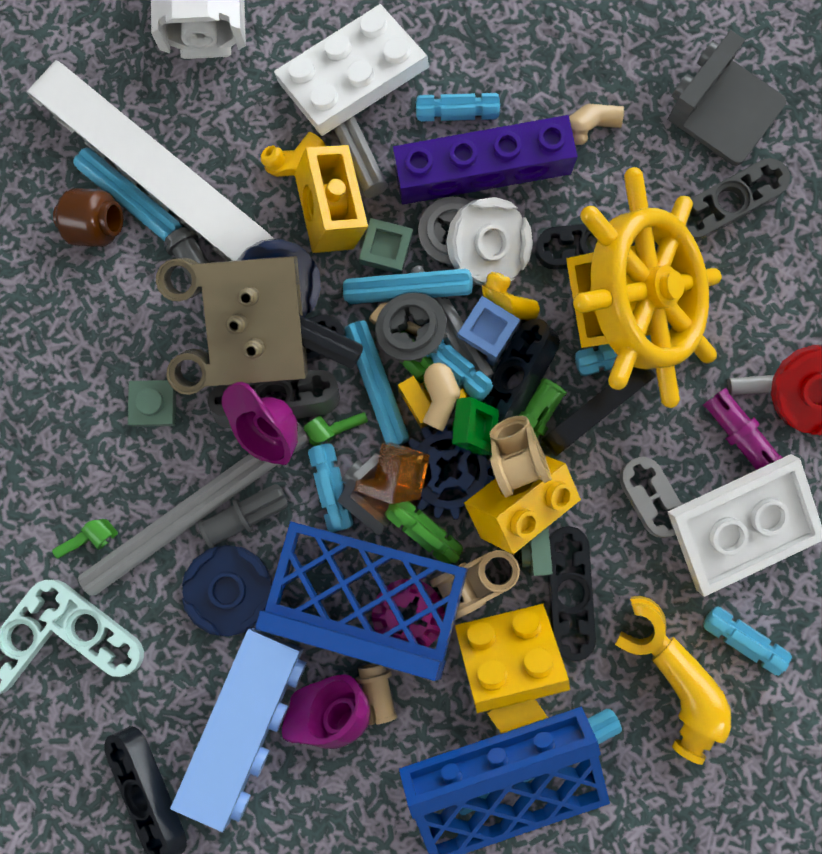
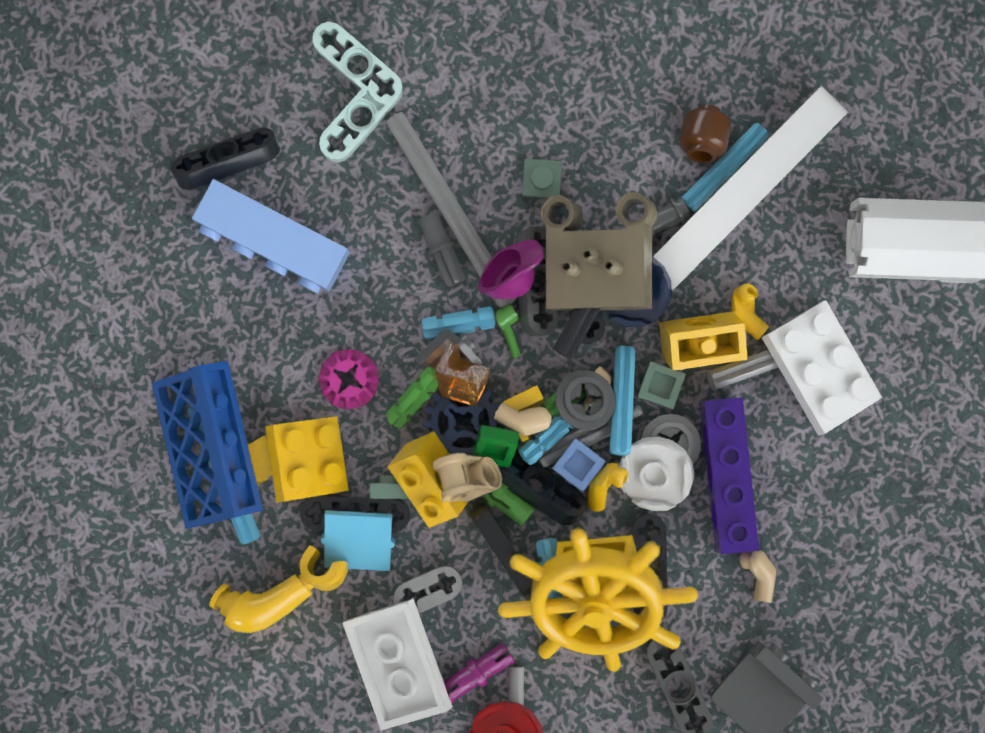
camera: 85 degrees right, 5 degrees up
(94, 531) = (438, 128): bright green hand -> none
(239, 593) = (390, 242): dark blue tile -> none
(327, 713) = (275, 307): magenta piece -> none
(354, 640) = (331, 330): blue fence -> none
(376, 687) = (288, 348): tan pin -> none
(377, 385) = (542, 368): medium azure axle -> none
(458, 107) = (782, 458): medium azure axle -> none
(477, 587) = (368, 433): tan piece -> none
(602, 586) = (358, 539): none -> medium azure piece
(747, 641) = (304, 655): medium azure axle -> none

